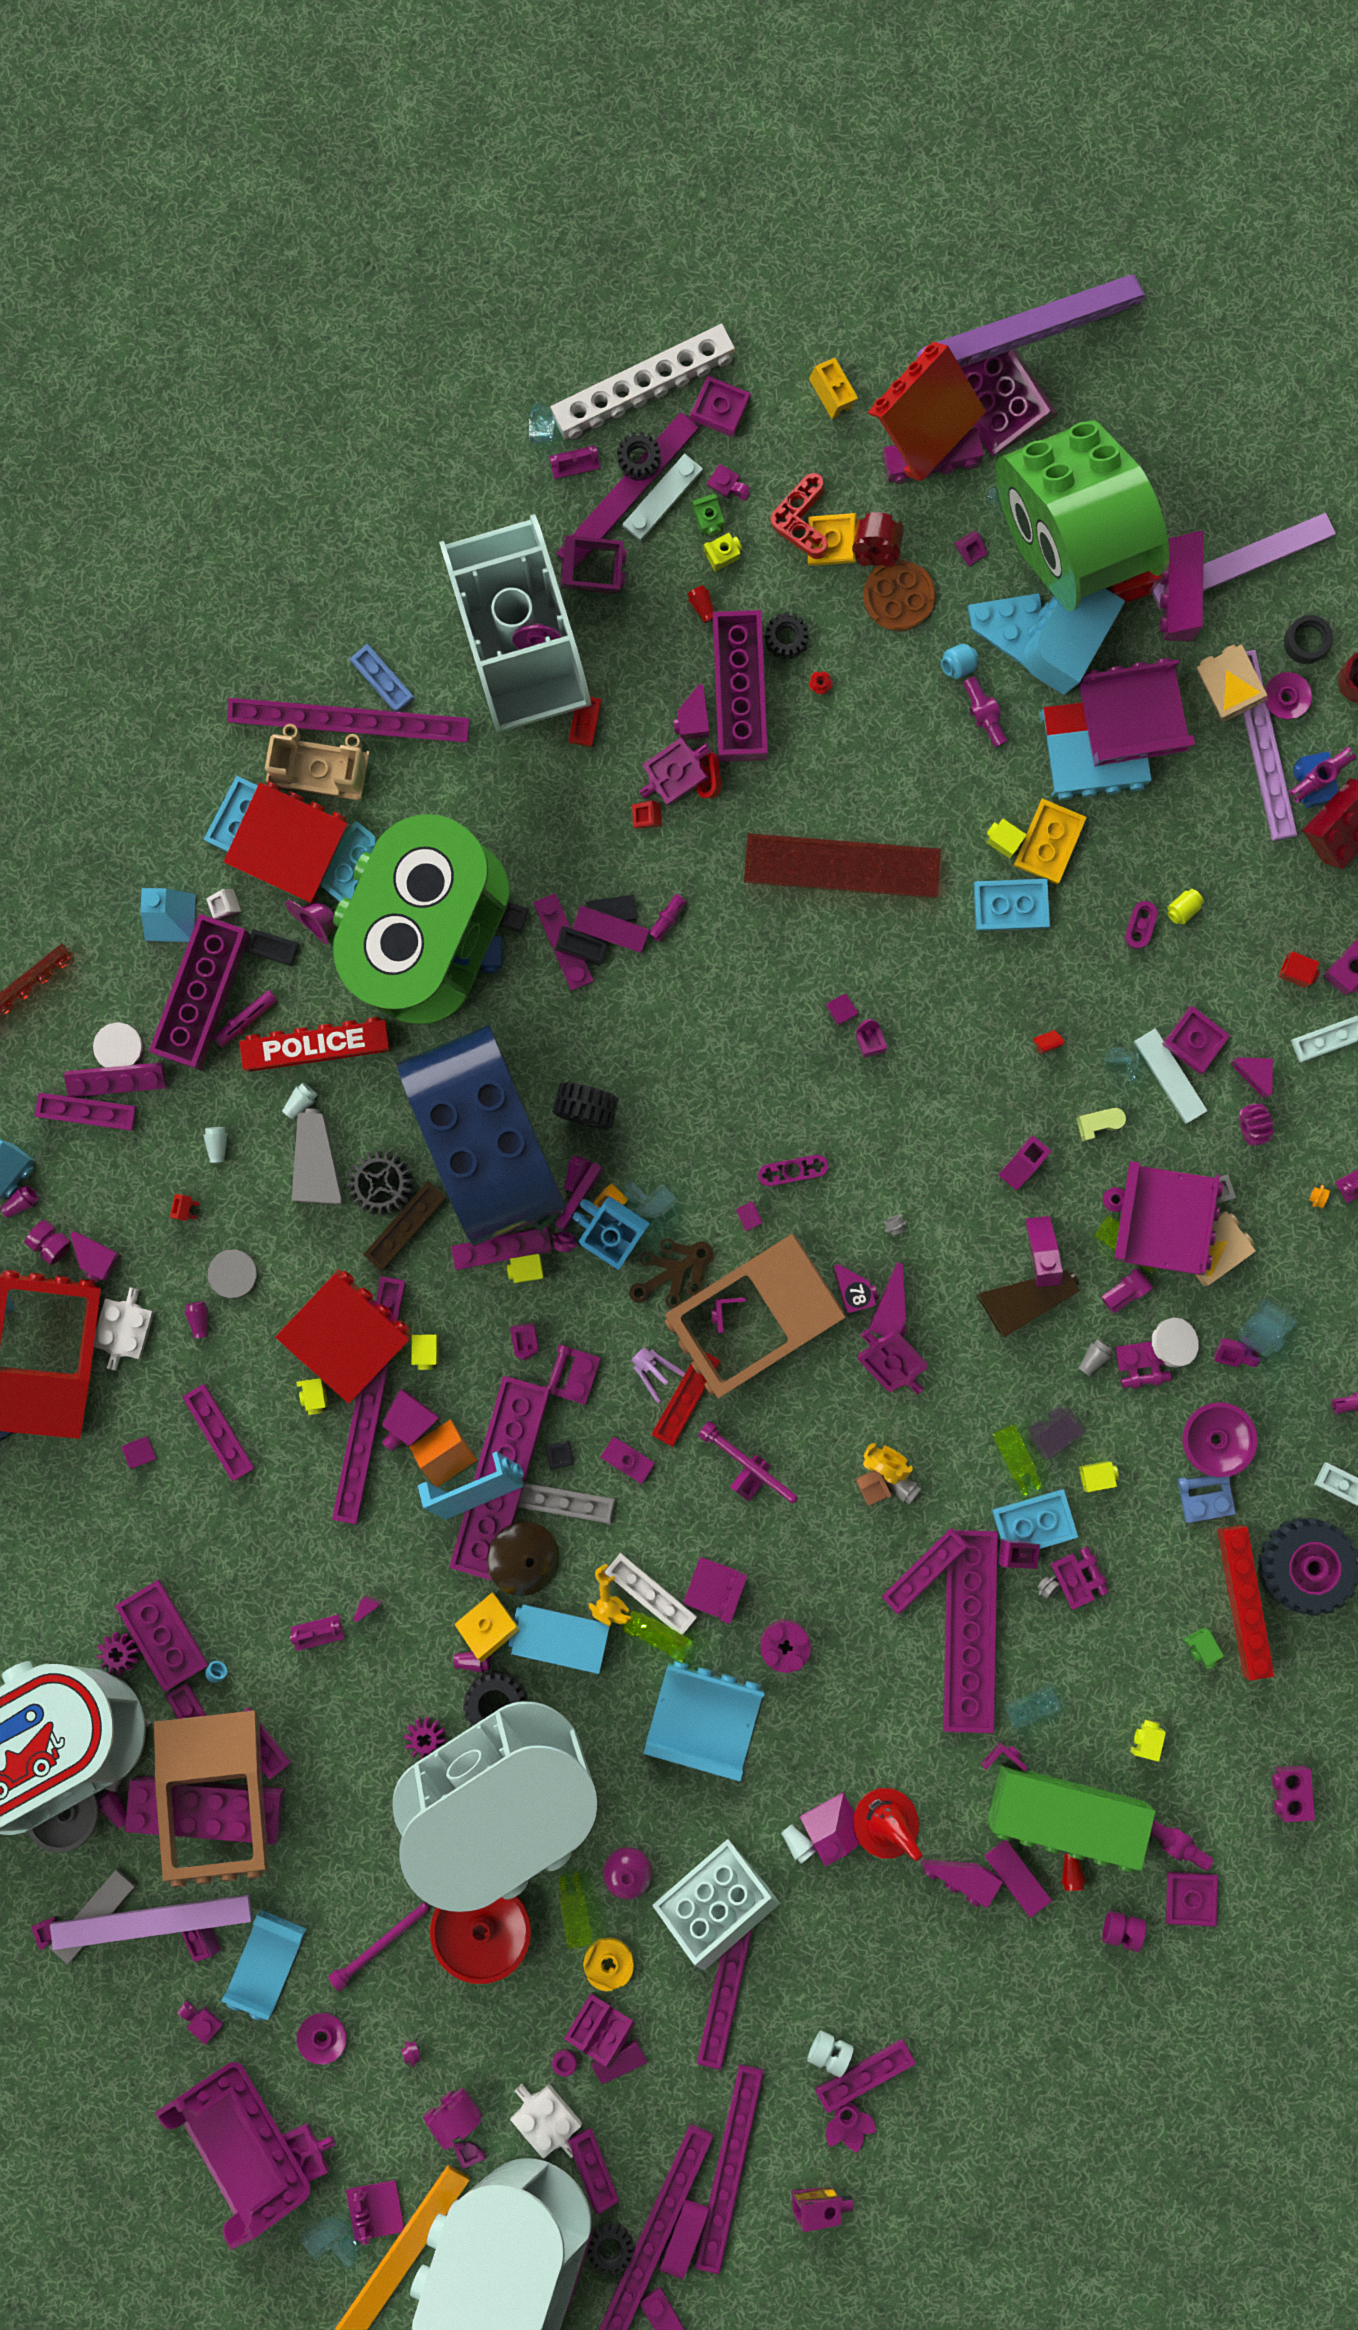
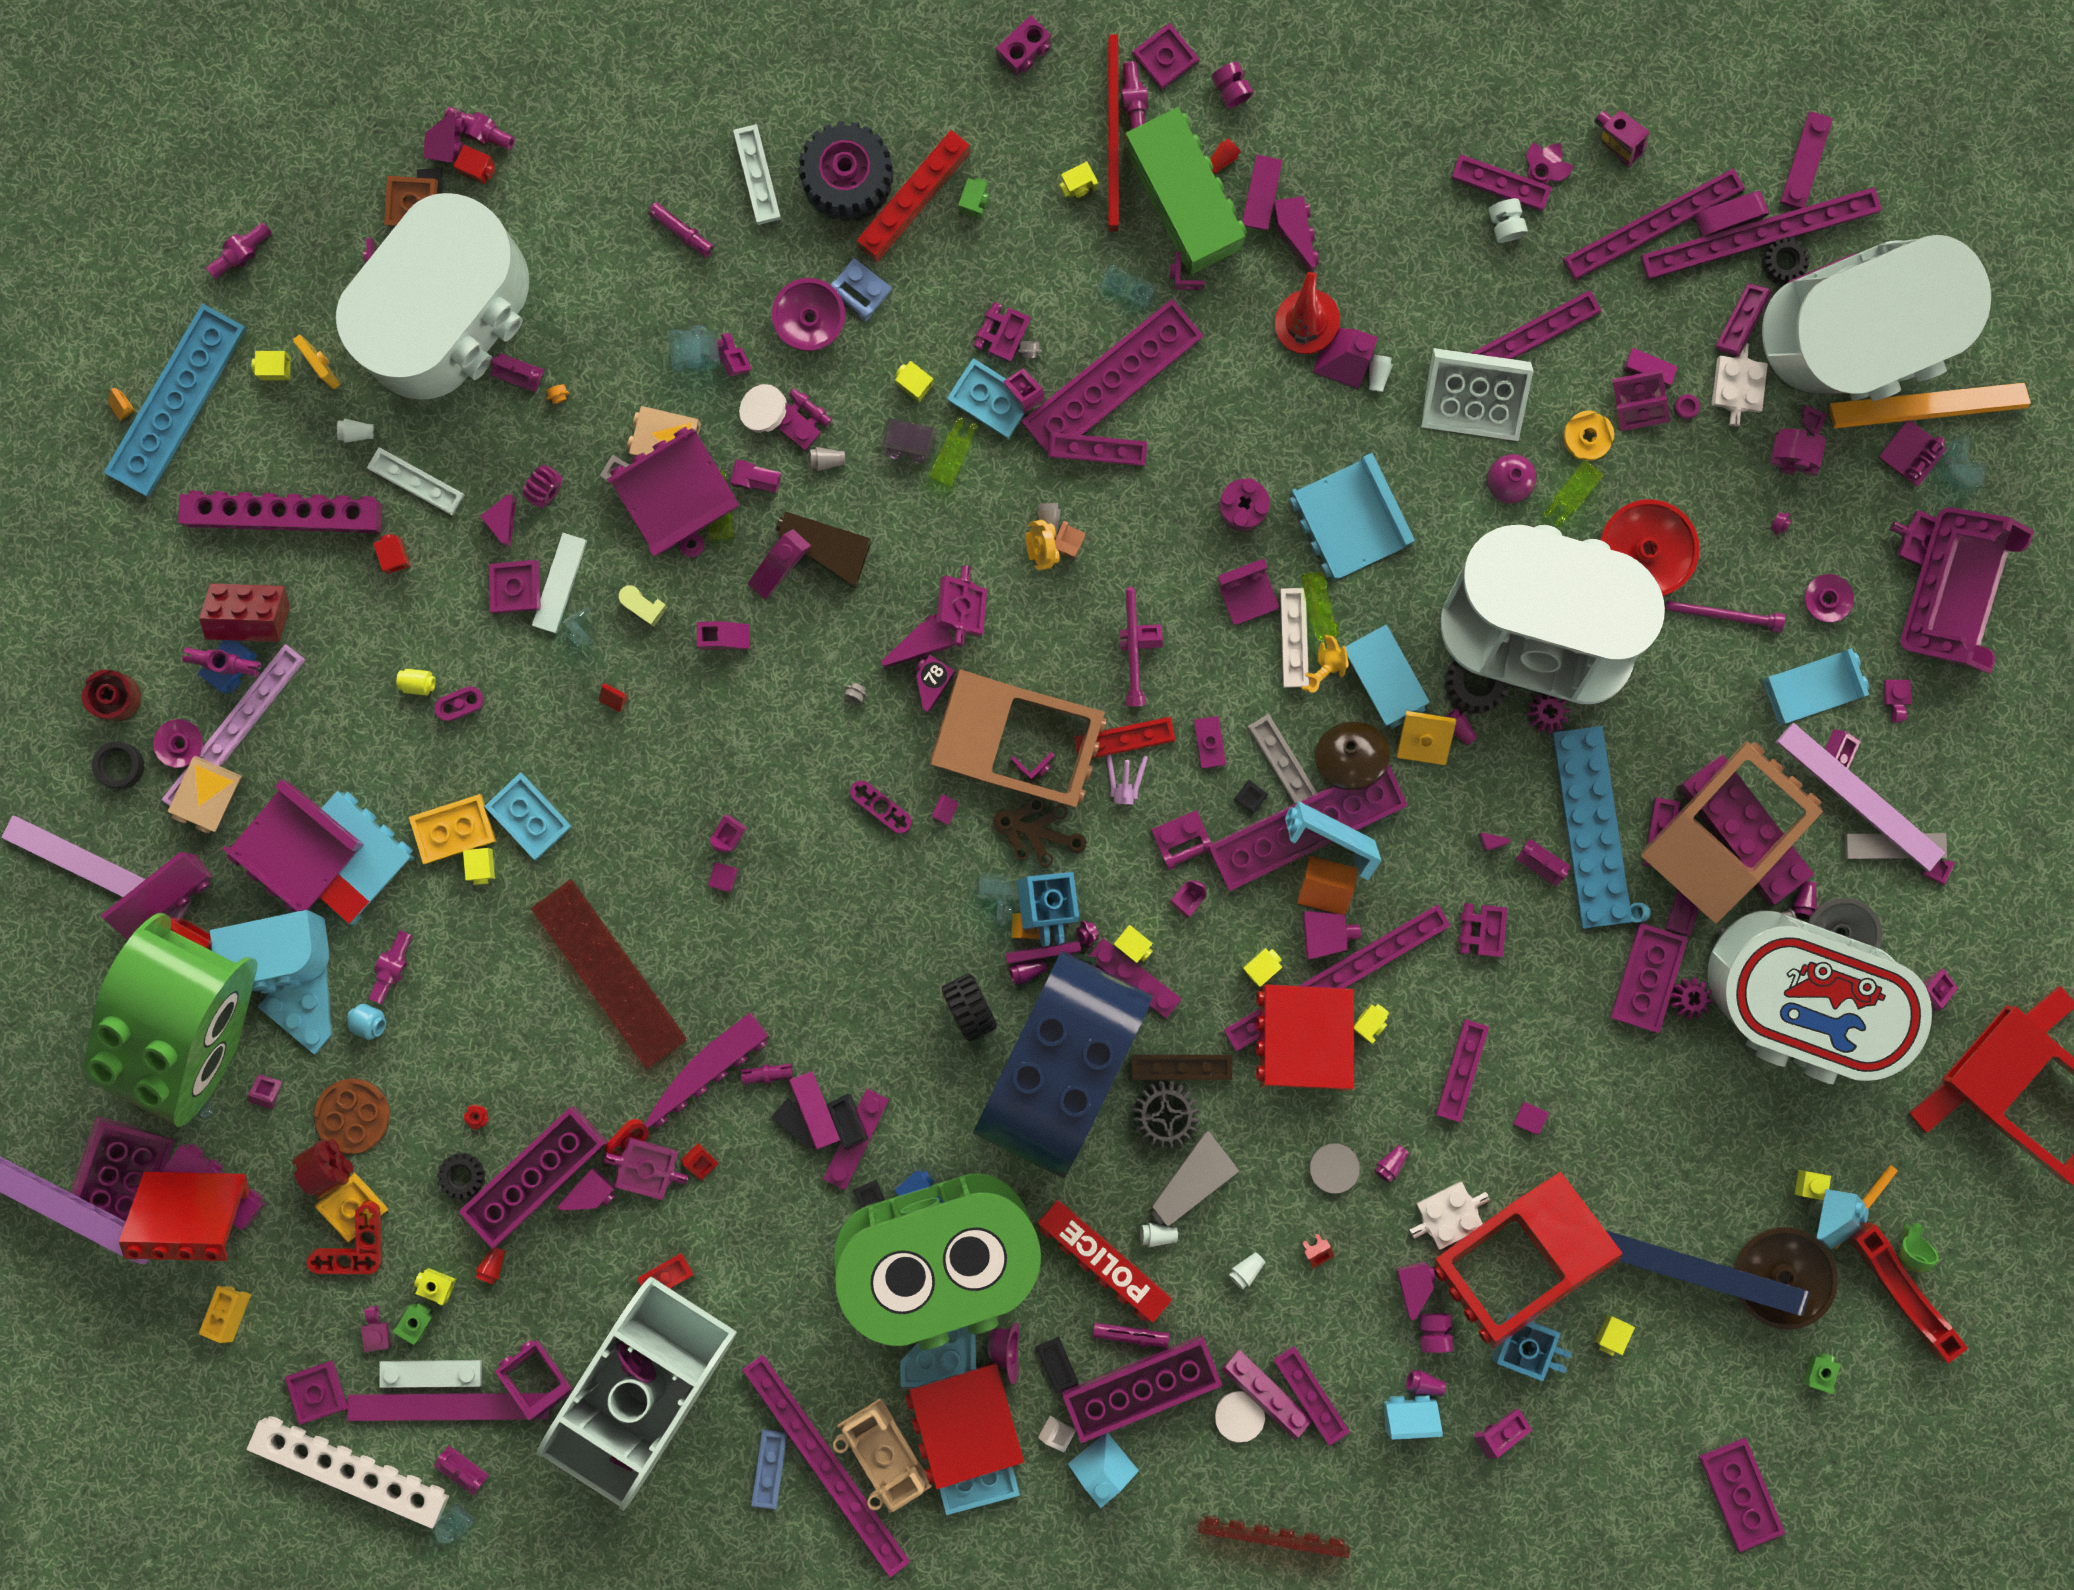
camera: 130 degrees left, 0 degrees up
(301, 1547) = (1491, 930): none -> magenta plate
(311, 1694) = (1592, 827): none -> dark azure plate
(638, 470) = (402, 1432): black tyre -> none
(709, 882) = (710, 1065): none -> magenta slope
(1165, 1803) = (1113, 154): none -> red tile

